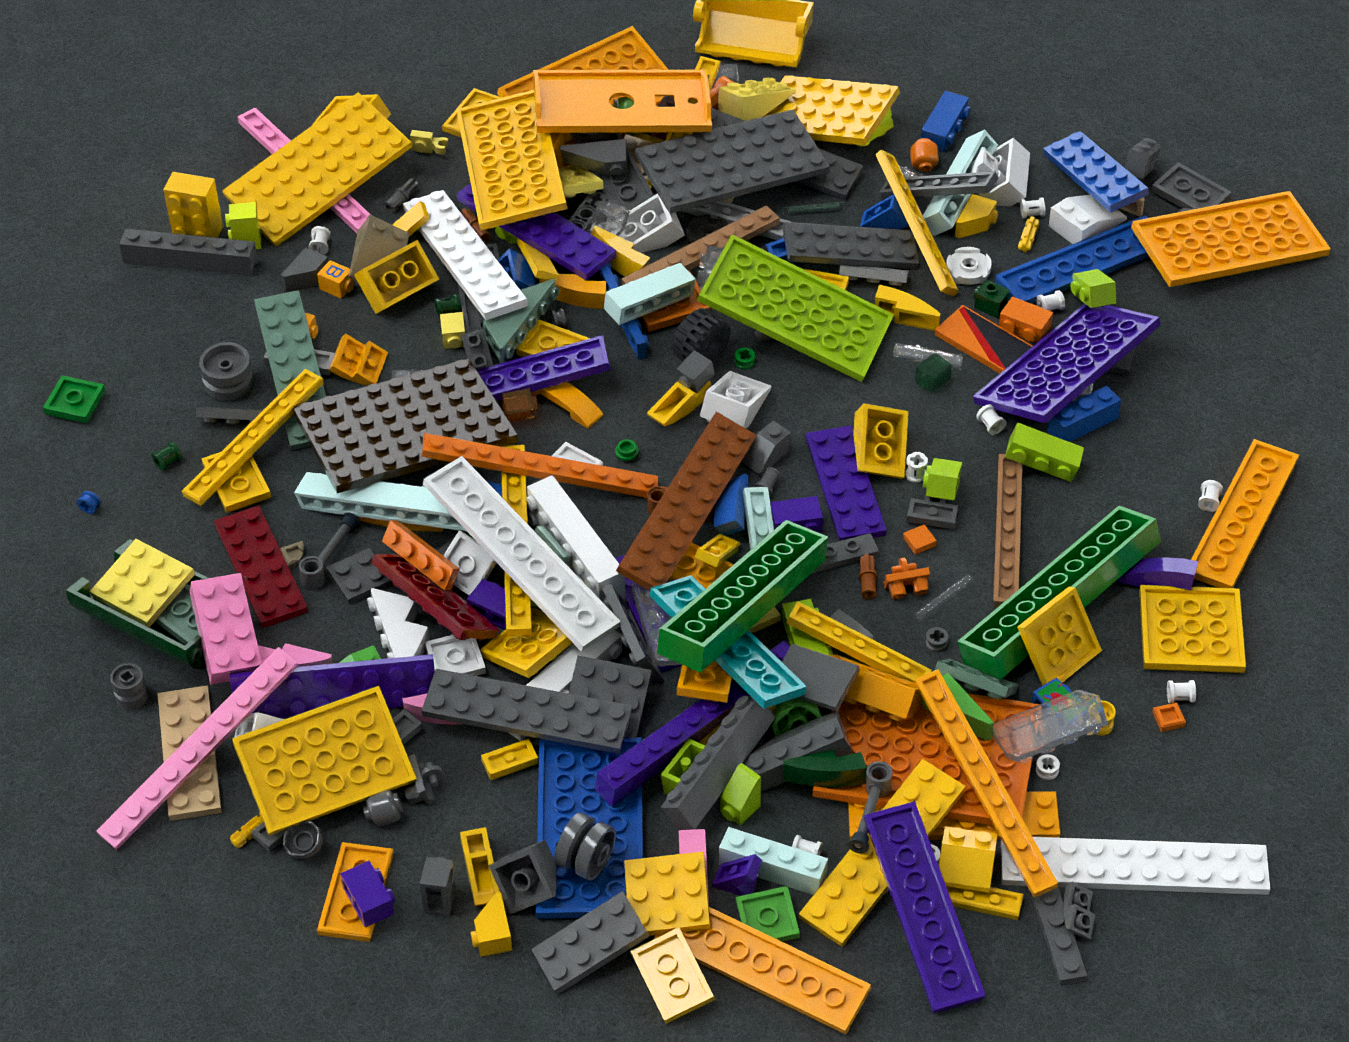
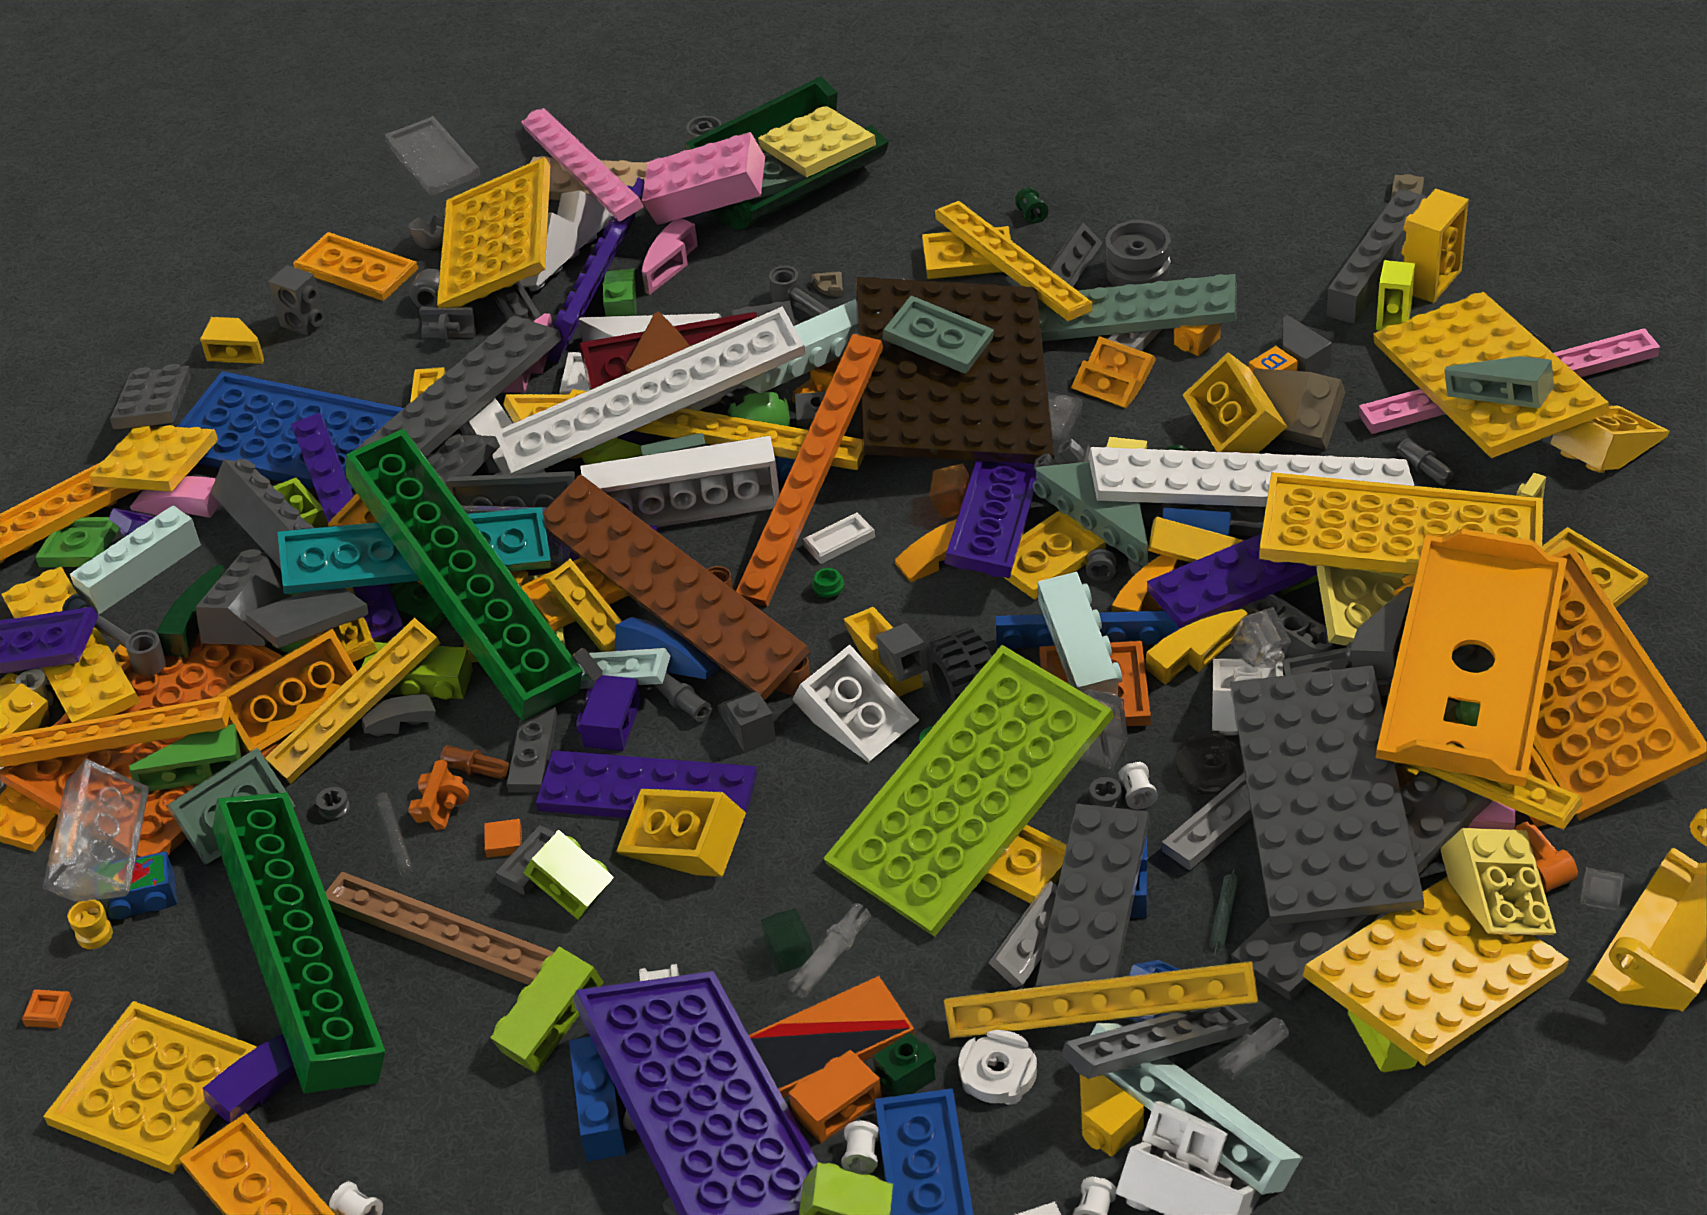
camera: 115 degrees right, 5 degrees down
(74, 399) = (1161, 150): green plate -> none
(88, 502) = (990, 145): blue bush -> none
(91, 259) = (1408, 182): none -> dark tan plate
(182, 896) = (432, 155): none -> clear plate
(261, 565) = (850, 254): dark red plate -> none
(319, 236) = (1357, 371): white bush -> none
(354, 128) = (1503, 381): none -> sand green slope
(367, 893) = (330, 255): dark purple brick -> none
(391, 420) = (938, 334): none -> sand green plate
(413, 218) = (1345, 448): yellow tile -> none
(449, 591) = (656, 343): none -> dark orange slope
(477, 860) = (312, 347): yellow slope -> none
(526, 876) = (264, 359): dark grey slope -> none
(585, 846) = (243, 392): dark grey wheel -> none
(672, 975) = (67, 450): yellow plate -> none
(690, 255) = (1165, 740): medium nougat plate -> none
(741, 795) = (228, 544): lime slope -> none
(774, 523) = (587, 664): none -> dark grey tile
(807, 846) = (133, 595): white bush -> none
(907, 308) = (936, 949): yellow slope -> none
(912, 466) = (618, 859): white bush -> none
(924, 155) = (1286, 1087): orange head -> none
(946, 119) = (1367, 1148): blue brick -> none
(1028, 234) = (1038, 1180): yellow axle -> none
(1059, 637) = (213, 896): yellow plate -> none
(1181, 691) = (66, 1029): white bush -> none

